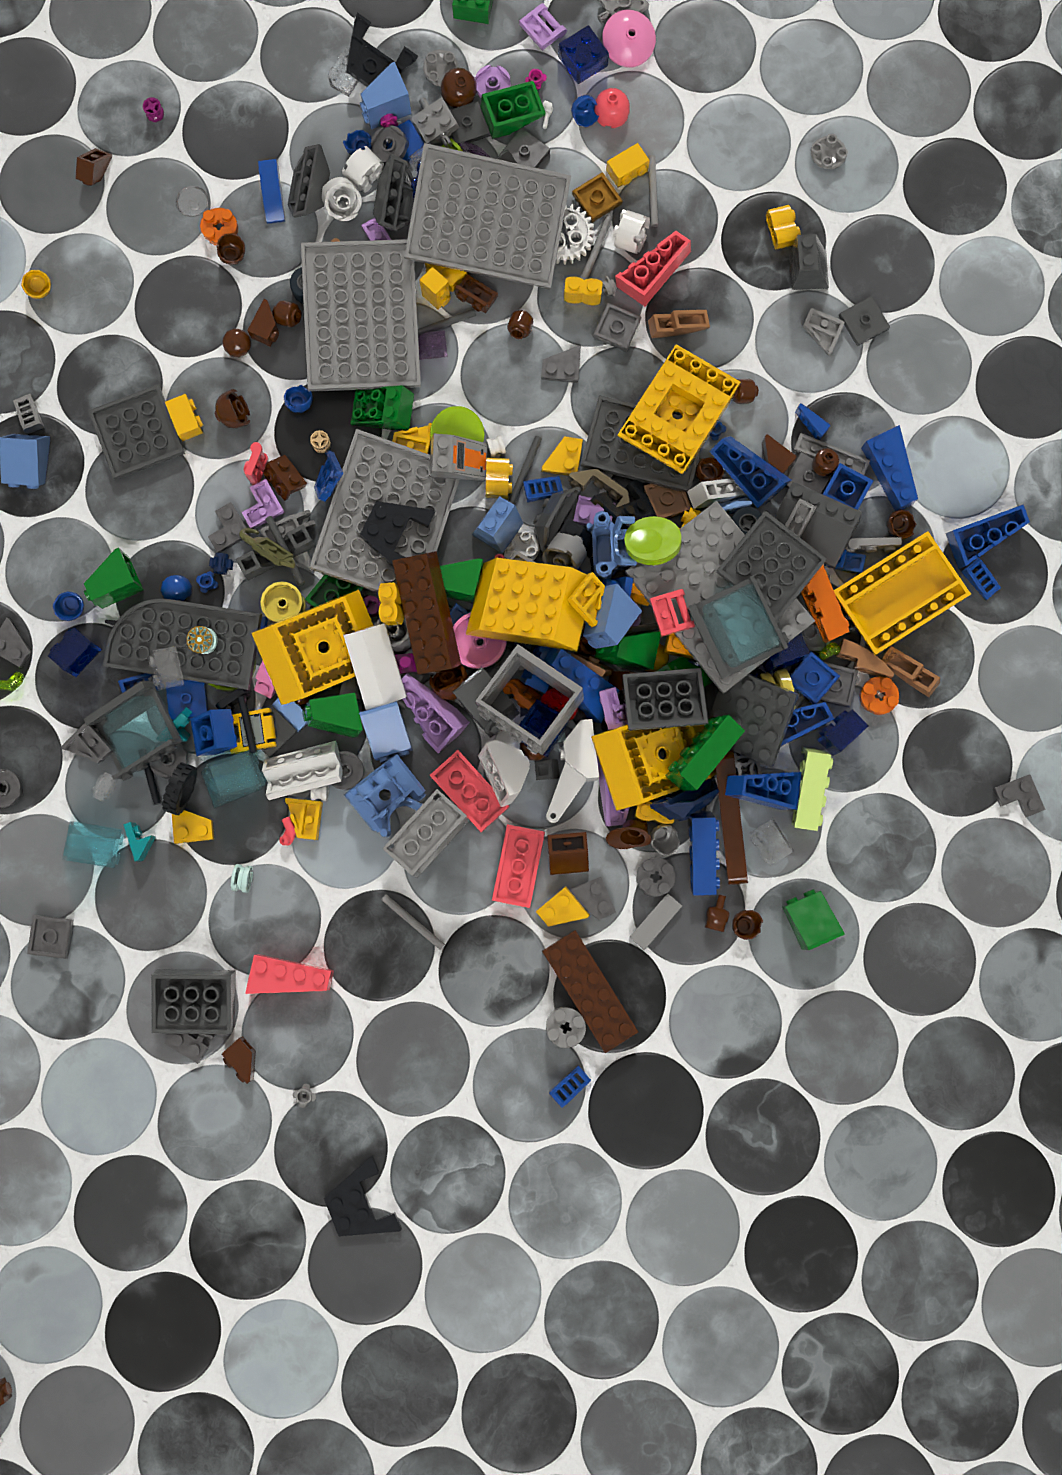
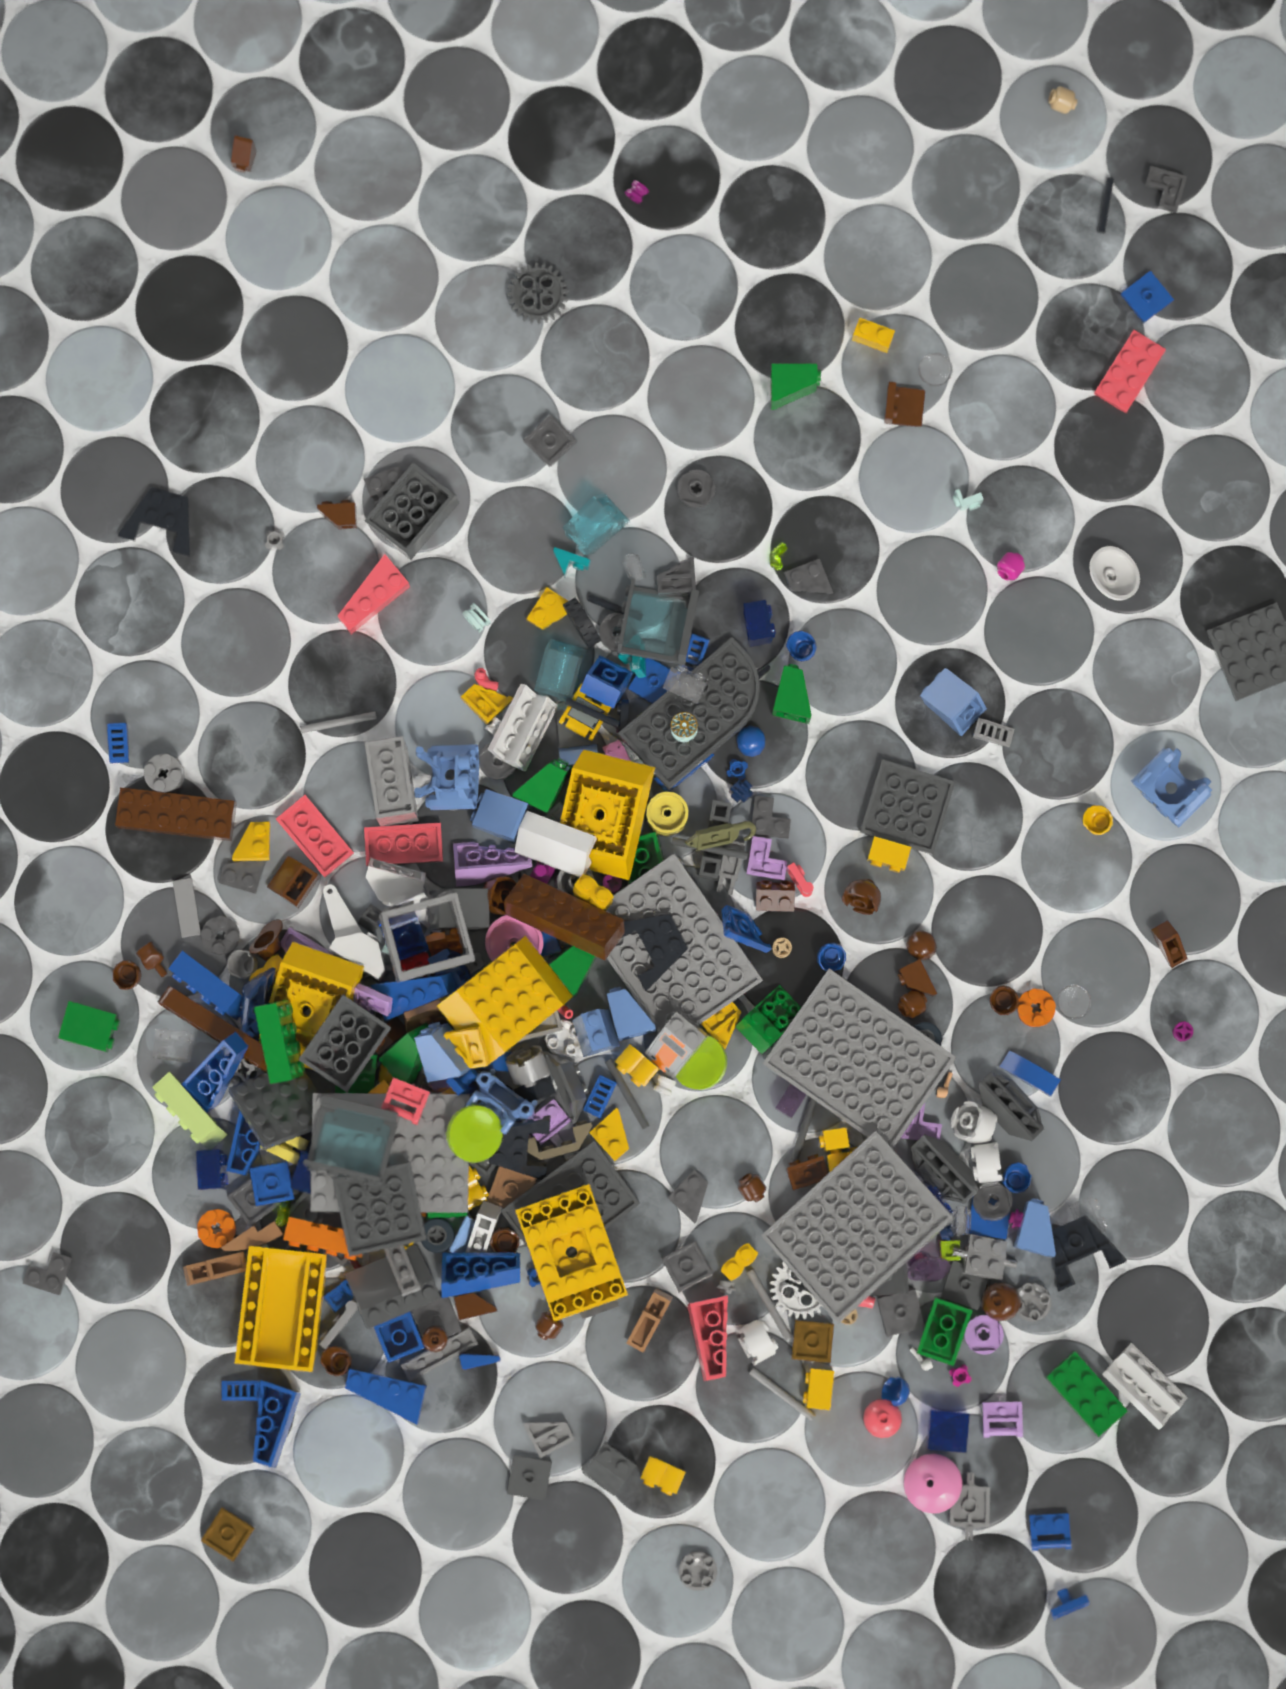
camera: 130 degrees right, 0 degrees up
(465, 511) = (628, 1016): none -> medium blue slope

